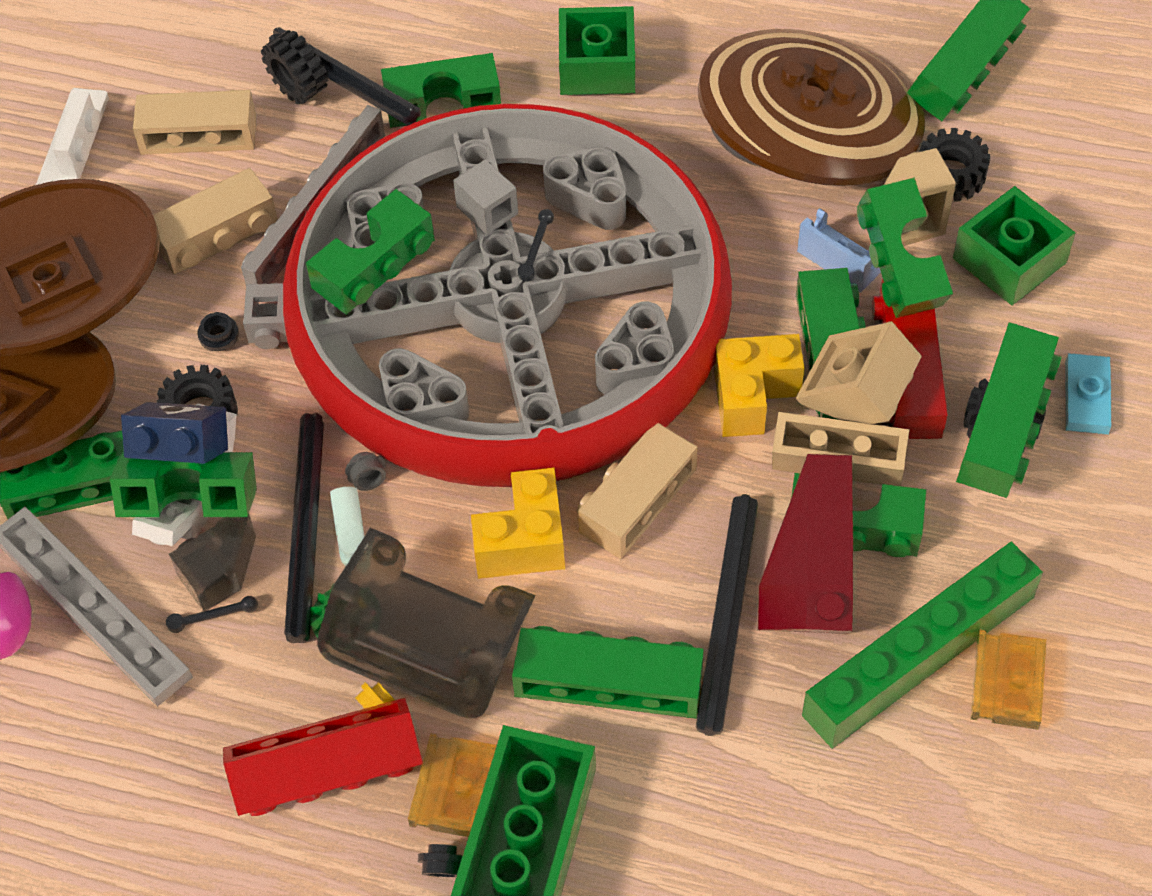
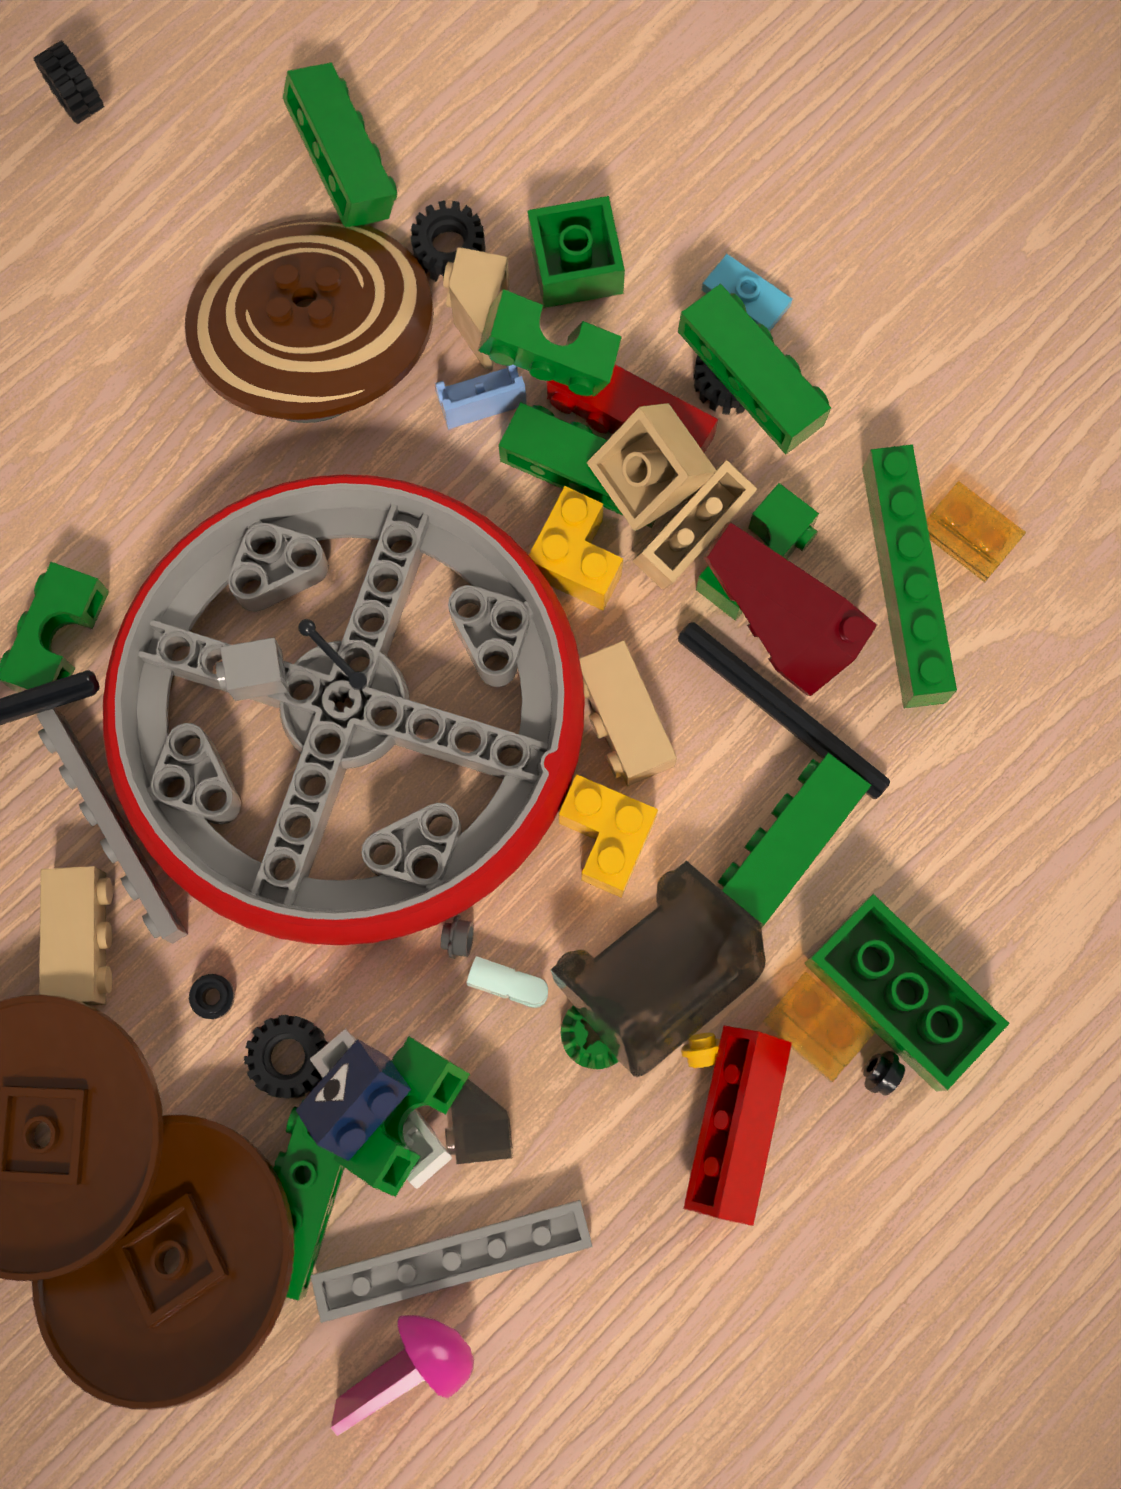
camera: 60 degrees left, 20 degrees up
(176, 622) = (512, 1187): black hinge -> none
(264, 322) = (212, 939): light grey brick -> none
(304, 529) = (481, 1022): black axle -> none
(351, 274) = (271, 846): green arch -> none
(596, 50) = (110, 463): green brick -> none

